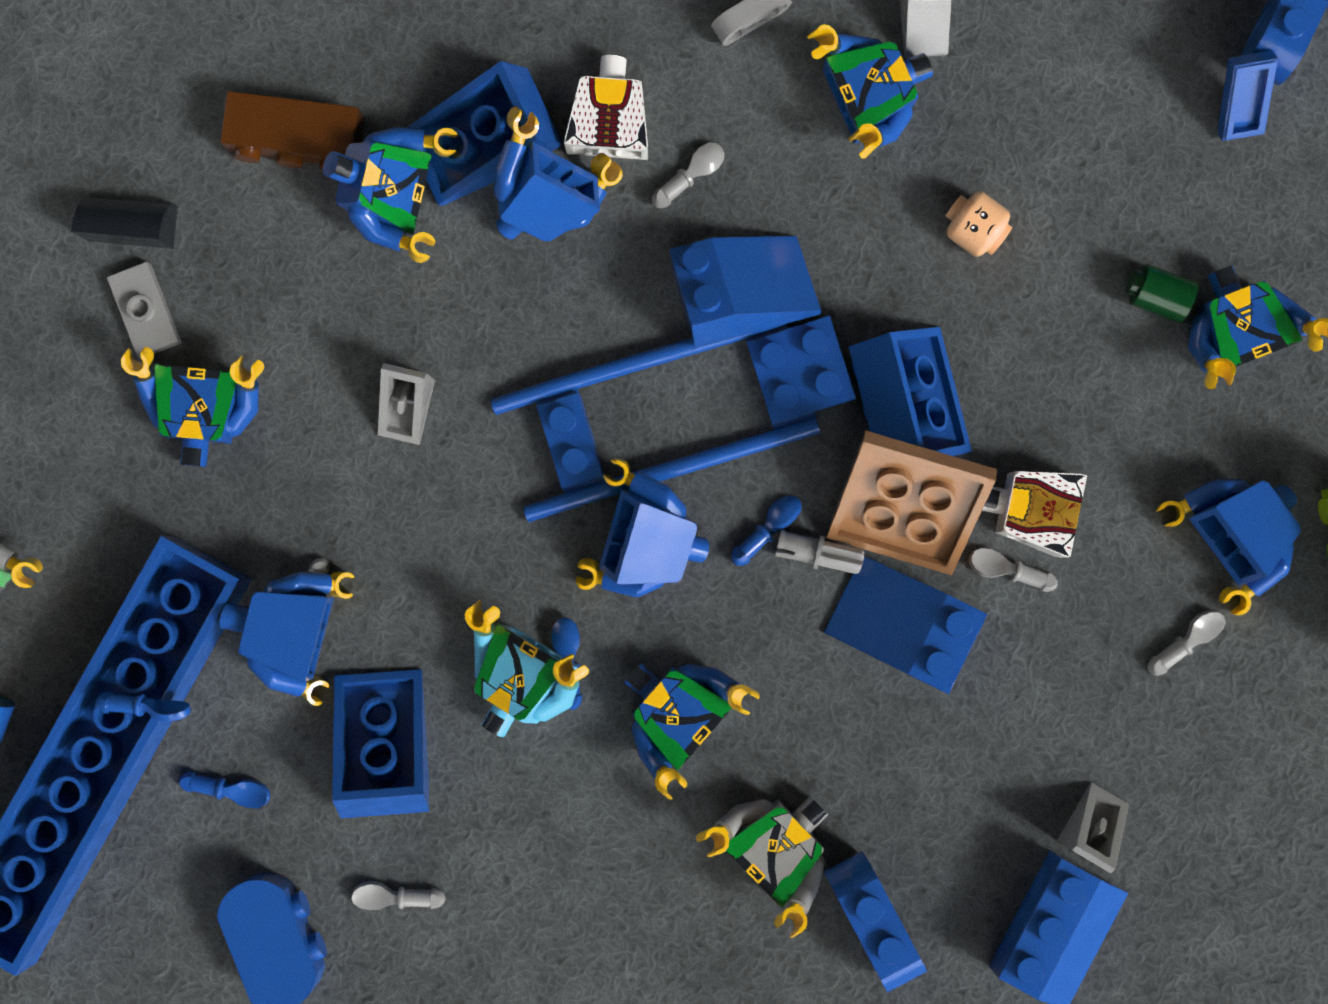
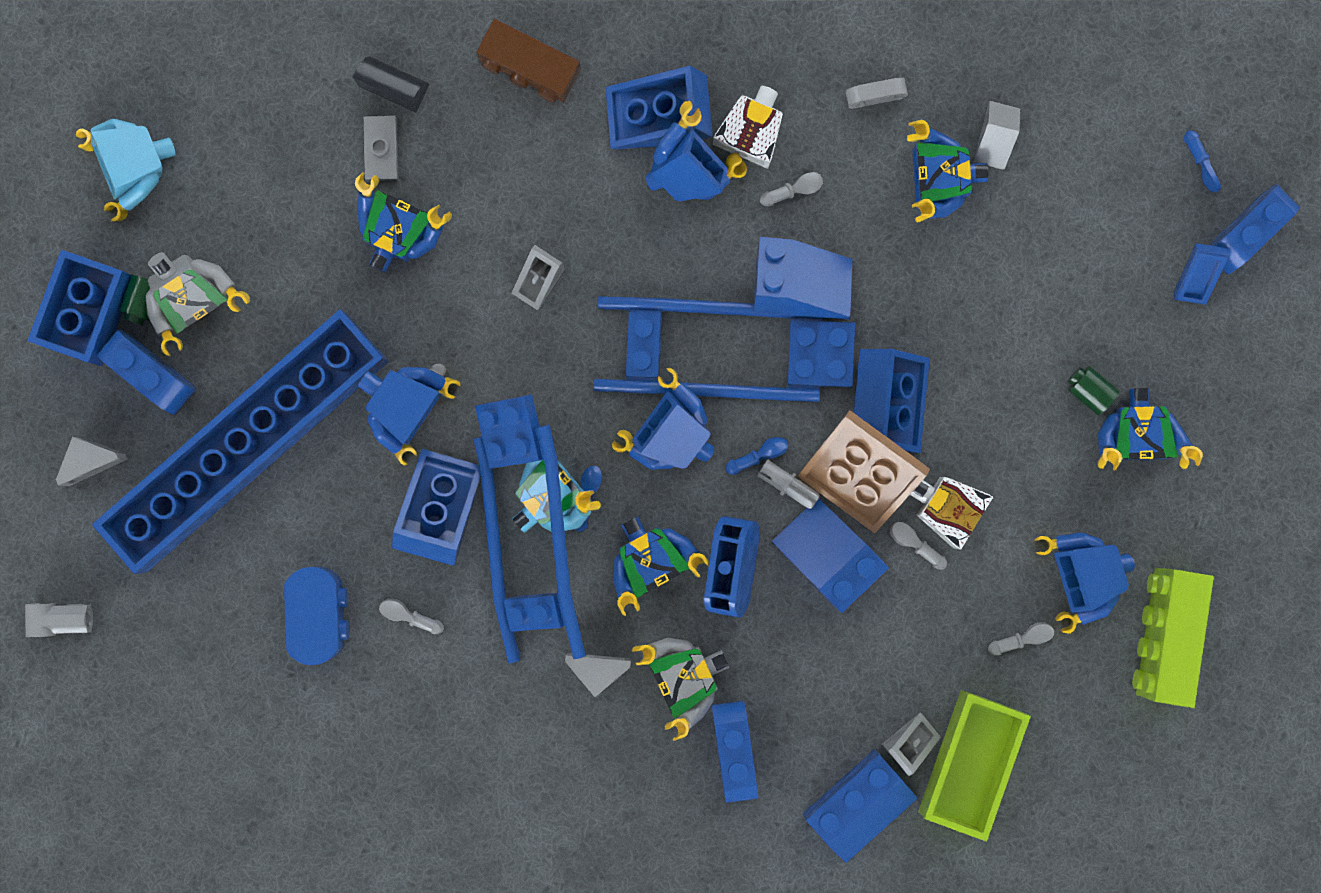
camera: 20 degrees right, 0 degrees up
(159, 709) = (284, 418): blue piece -> none
(245, 792) = (331, 507): blue piece -> none
(385, 185) = (579, 121): torso -> none
(446, 621) = (512, 438): none -> blue plate
(660, 880) = (597, 671): none -> light grey slope
(785, 685) = (731, 566): none -> blue brick
(978, 223) = (981, 296): light nougat head -> none
(1186, 827) = (973, 765): none -> lime piece

